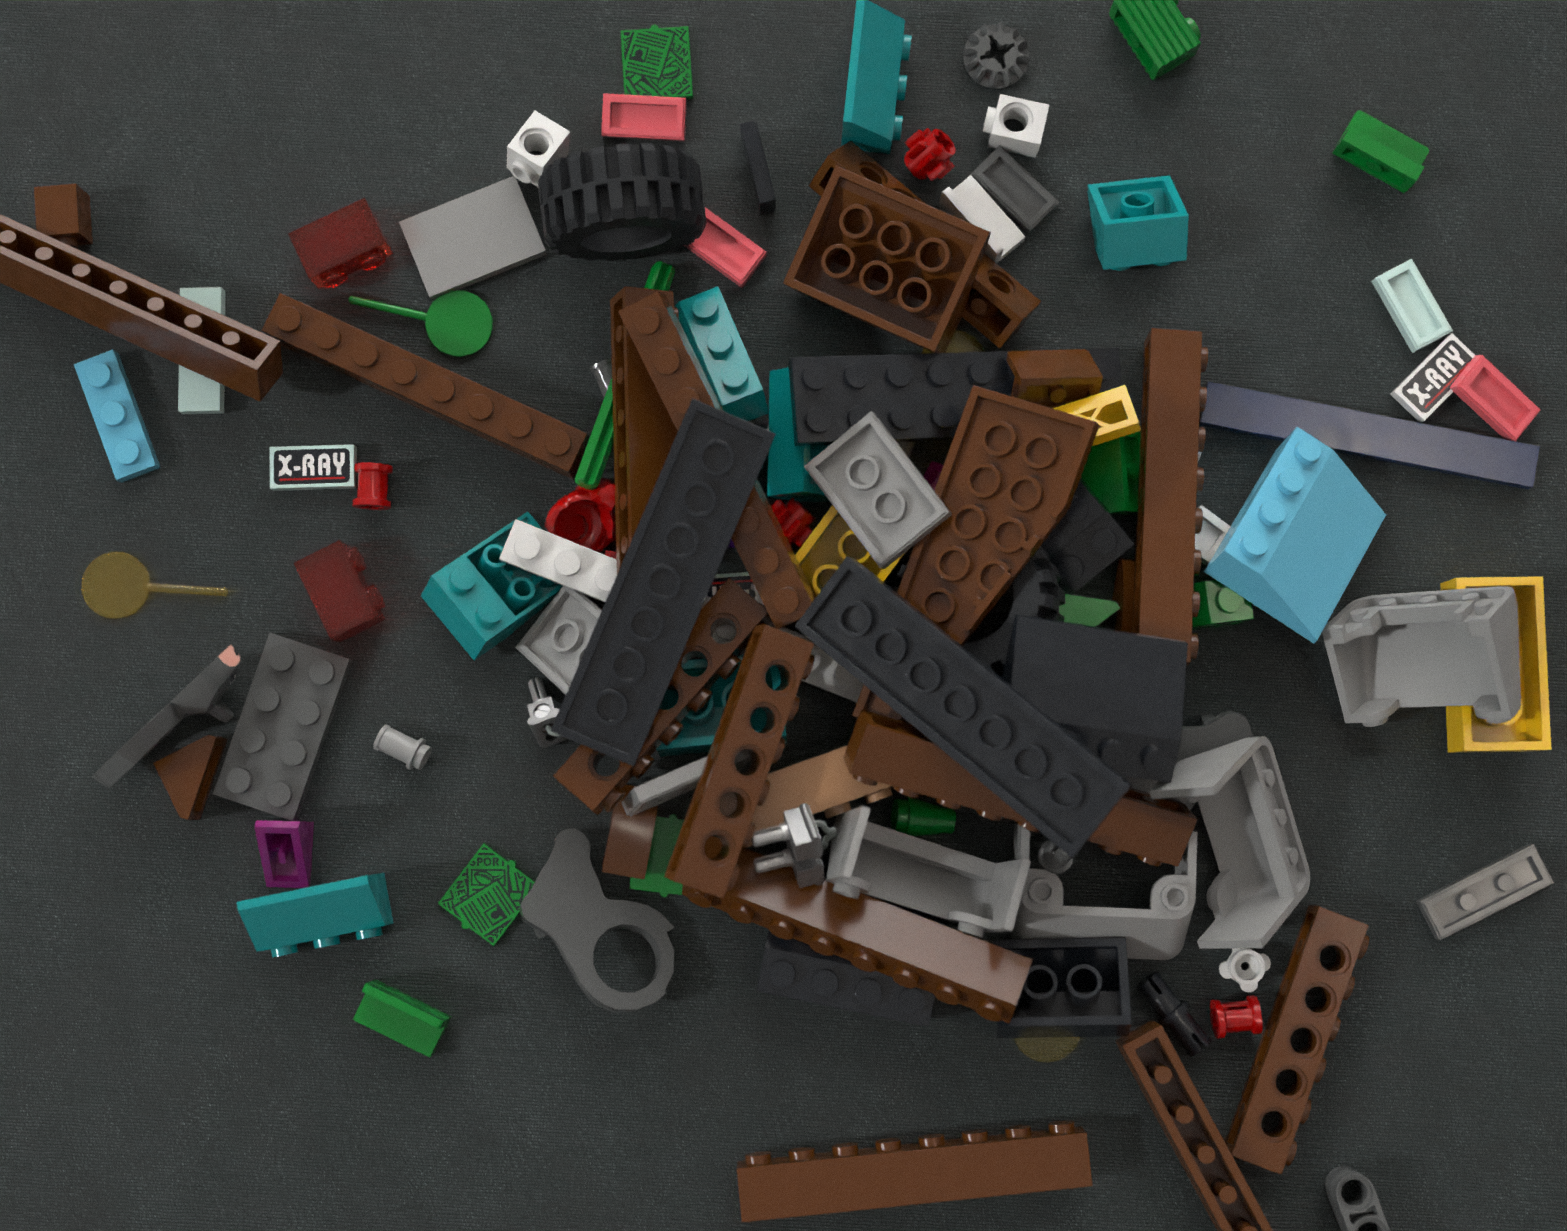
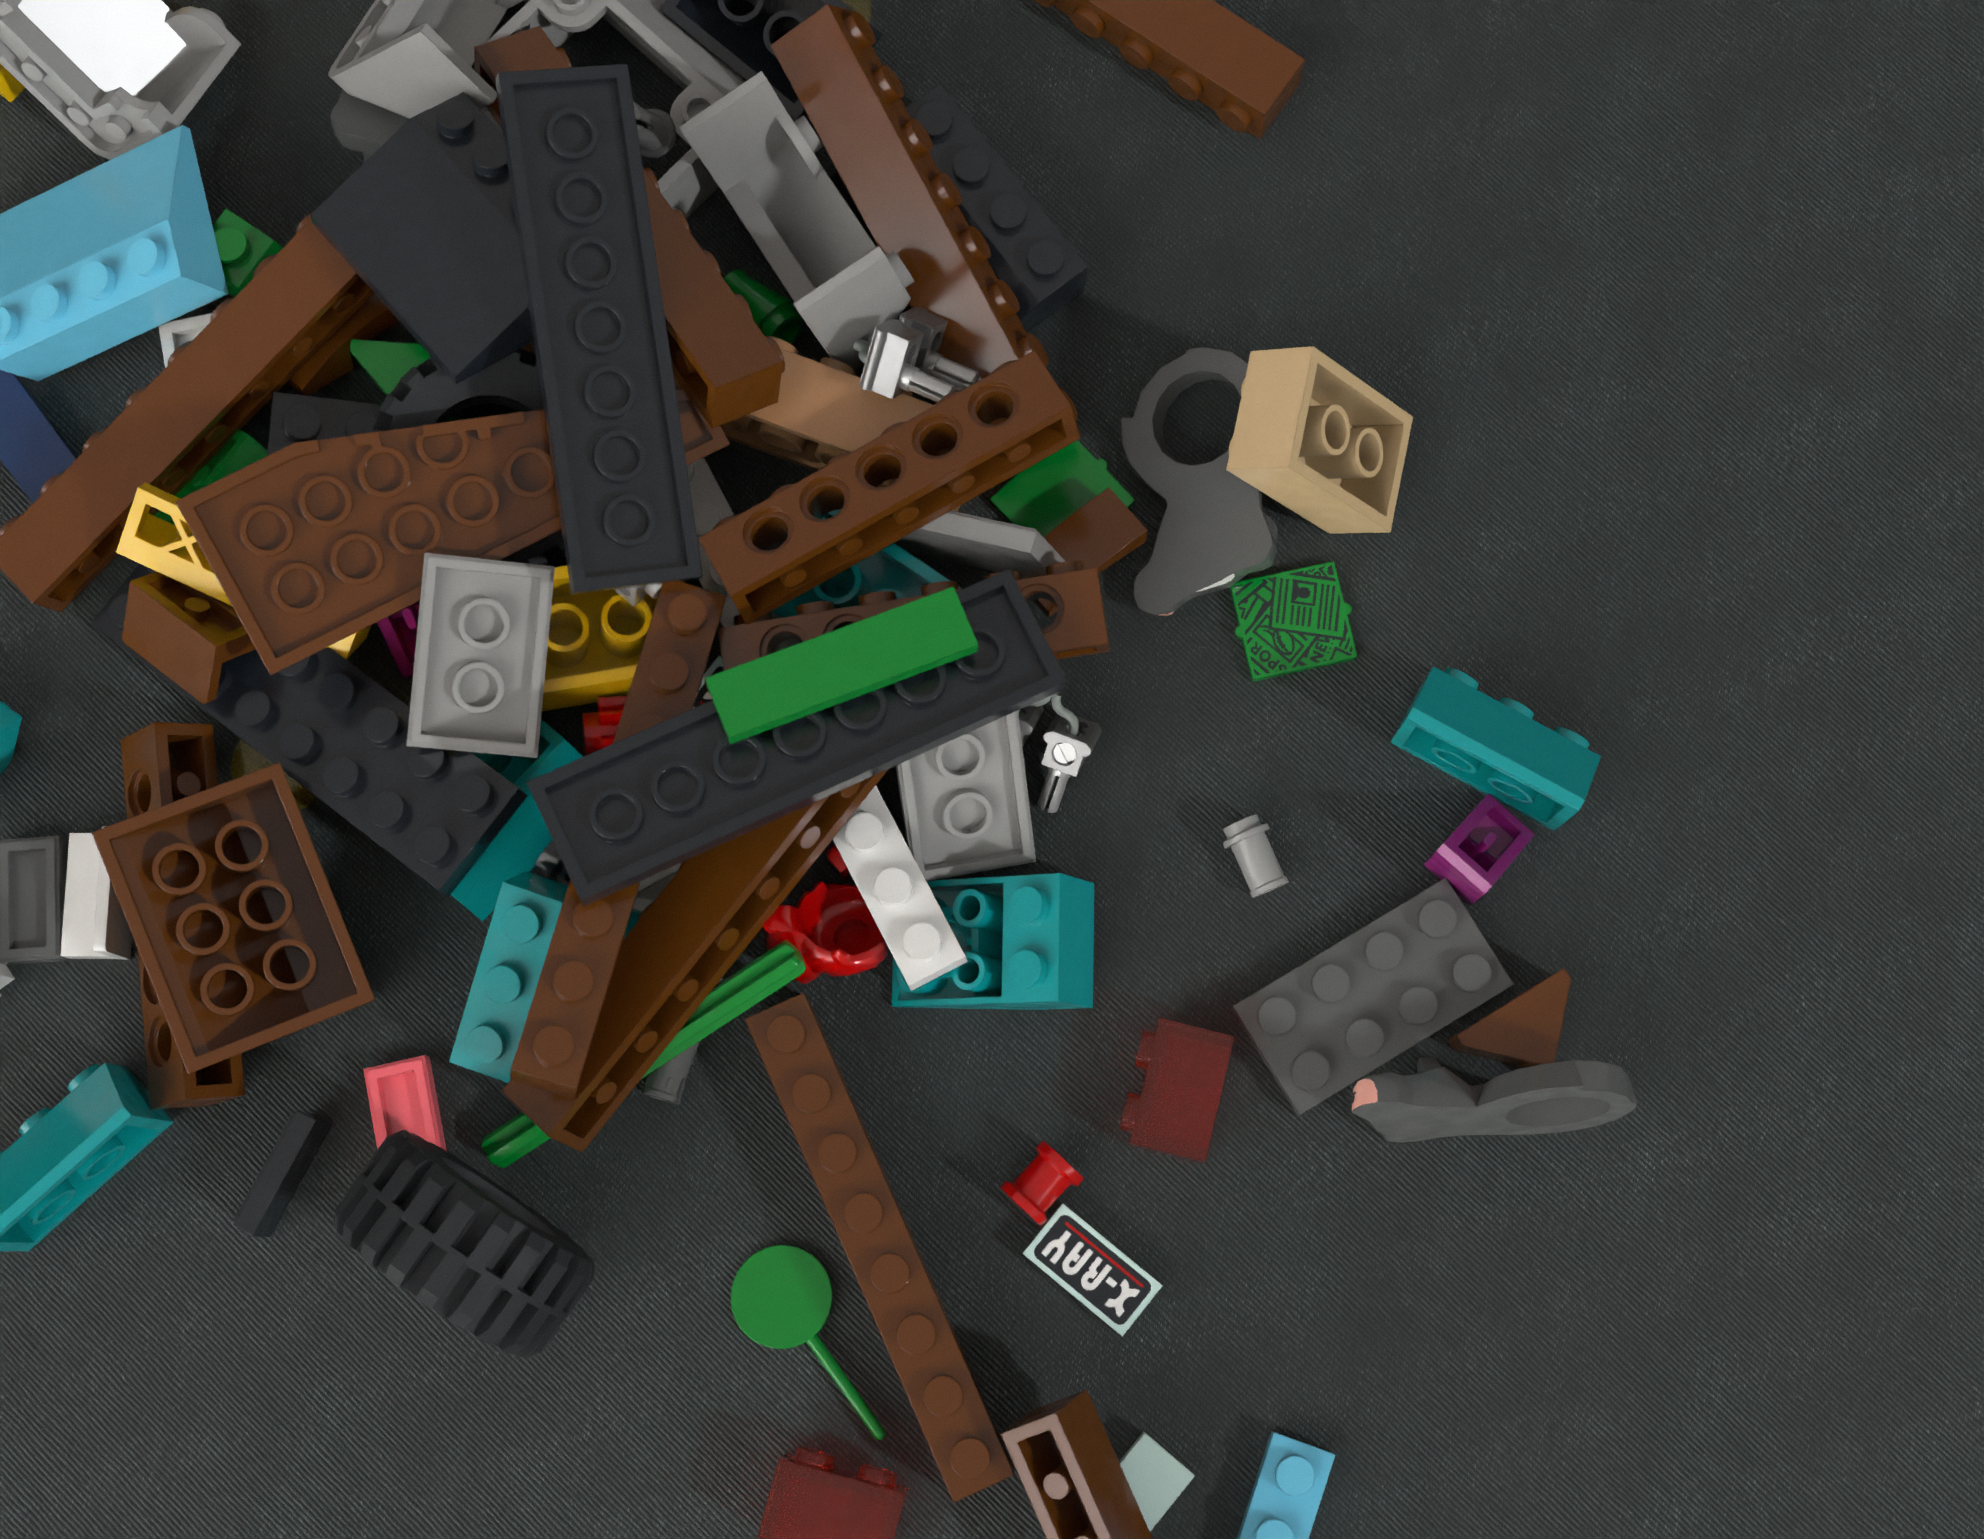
camera: 135 degrees left, 5 degrees down
(119, 586) = (1431, 1327): clear yellow piece -> none
(401, 1017) = (1496, 567): green panel -> none
(473, 238) = (676, 1386): light grey tile -> none
(536, 135) = (485, 1425): white brick -> none
(543, 994) = (1319, 441): none -> tan brick
(644, 117) = (355, 1355): coral tile -> none
(657, 62) = (283, 1411): green piece -> none
(669, 635) = (841, 665): none -> green tile
(929, 154) = (81, 1016): red gear -> none

